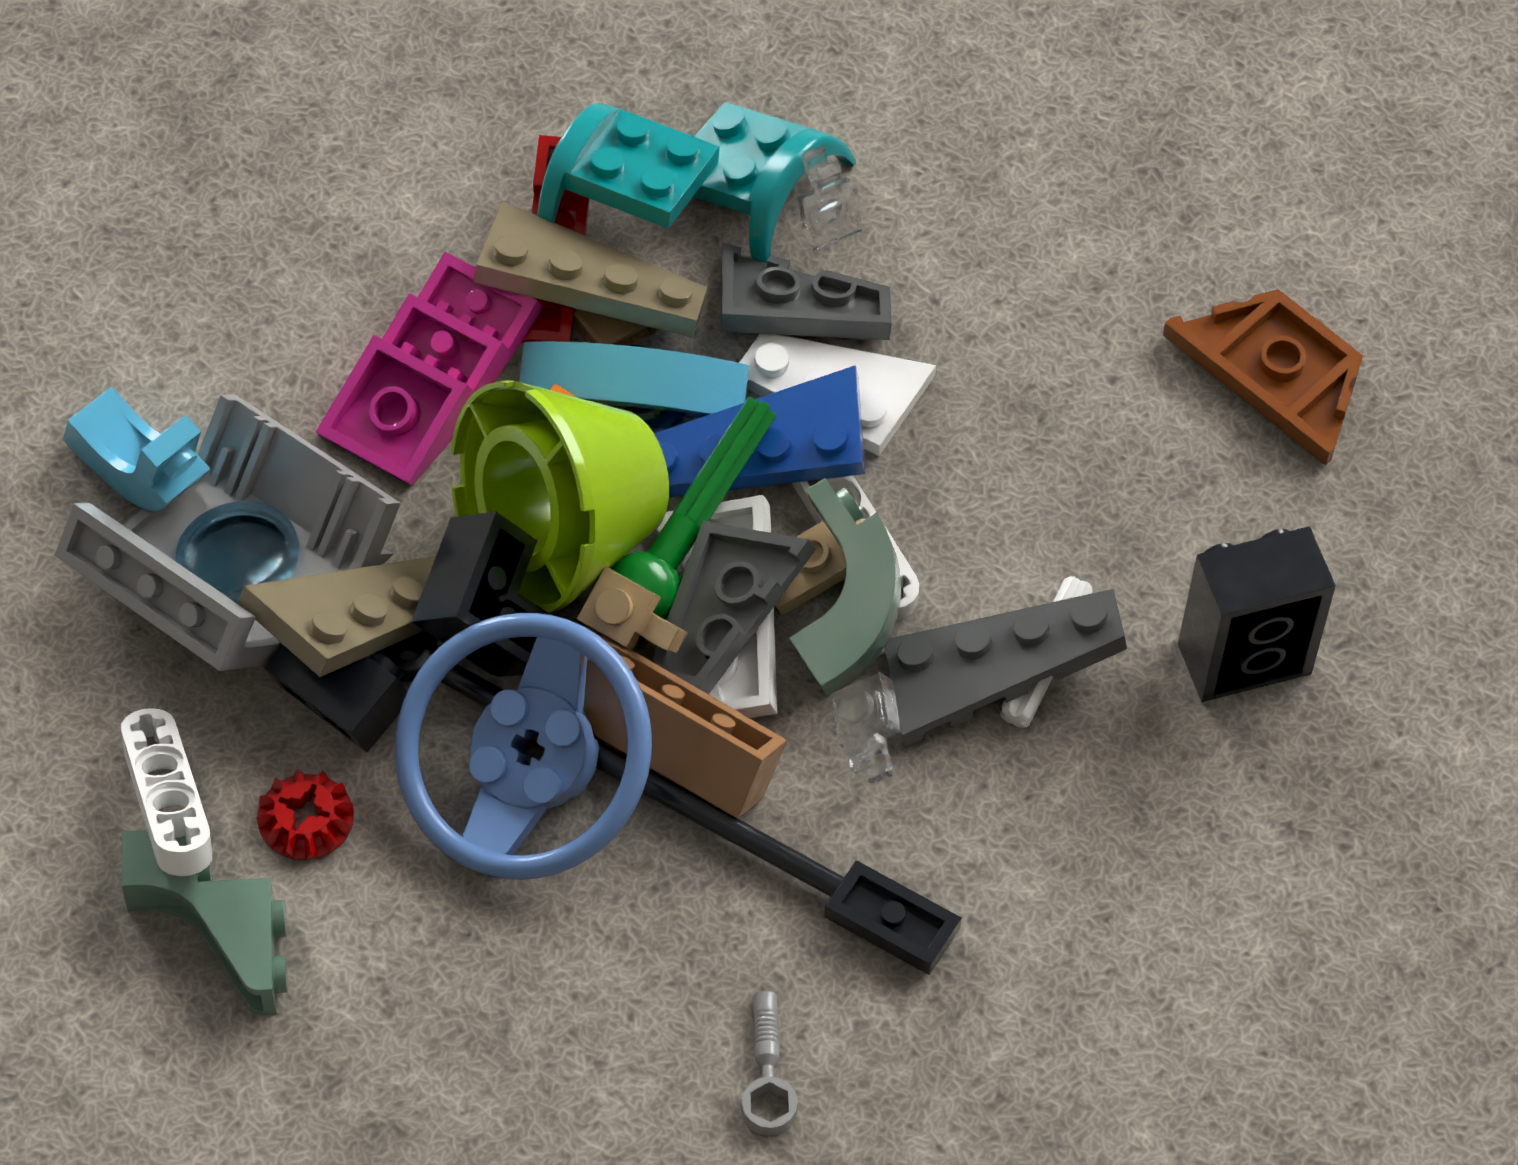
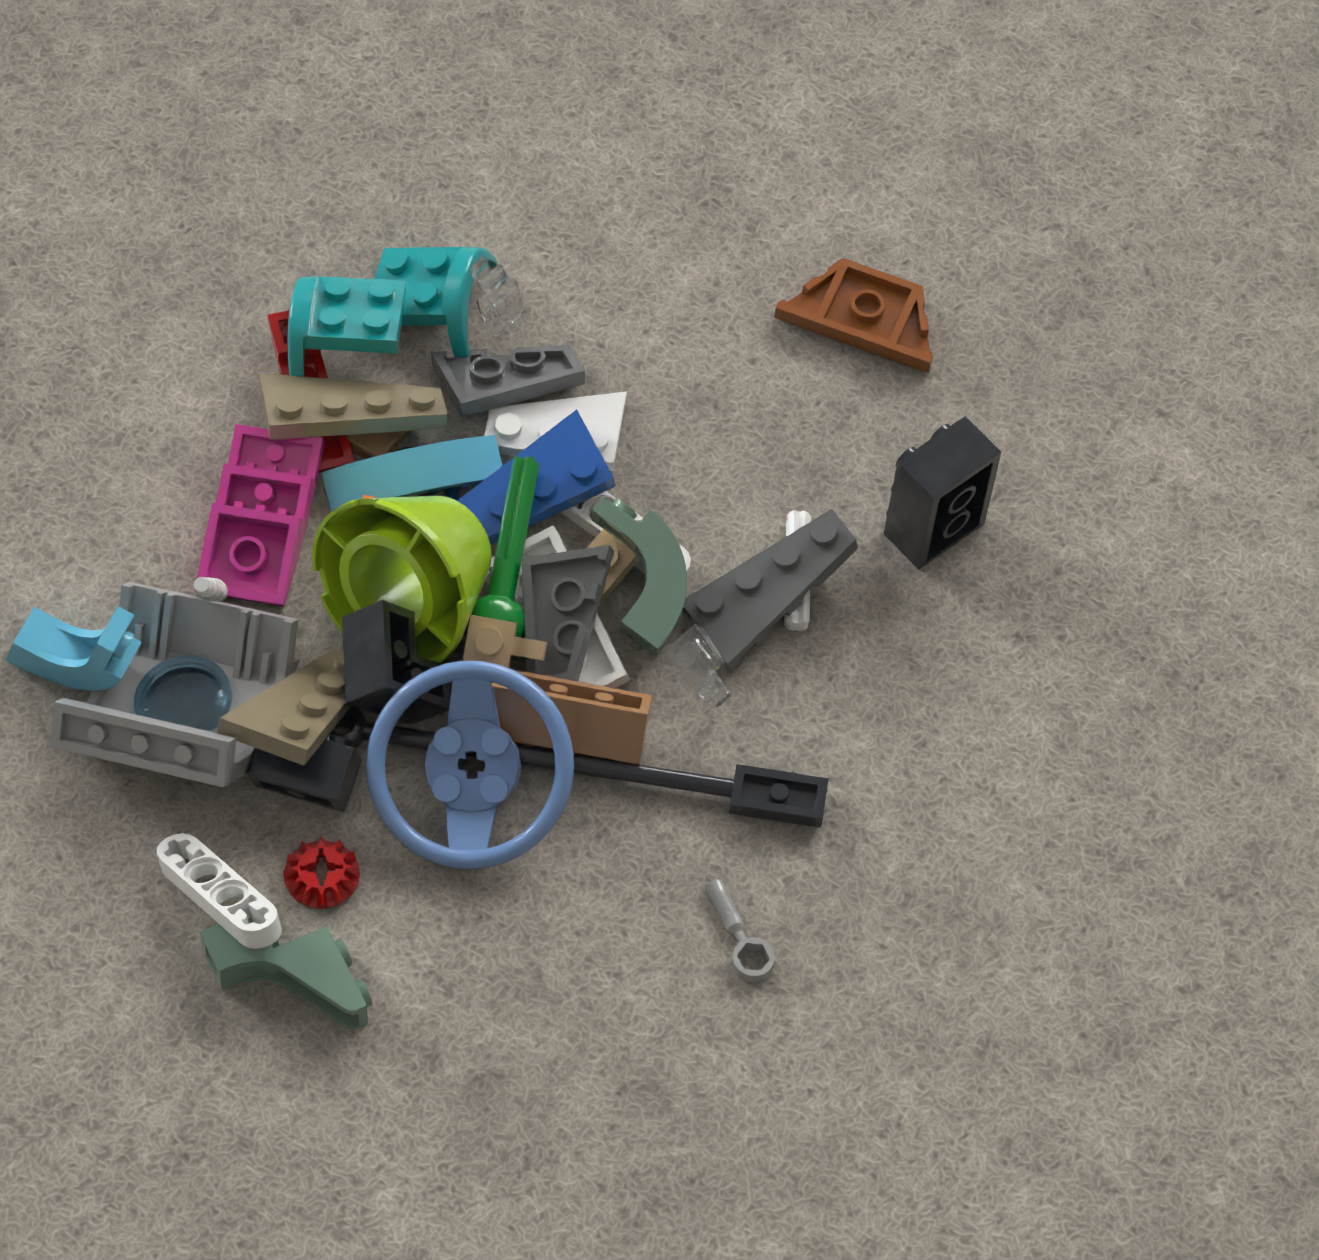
camera: 25 degrees left, 0 degrees up
(323, 434) = (211, 588): none -> white animal

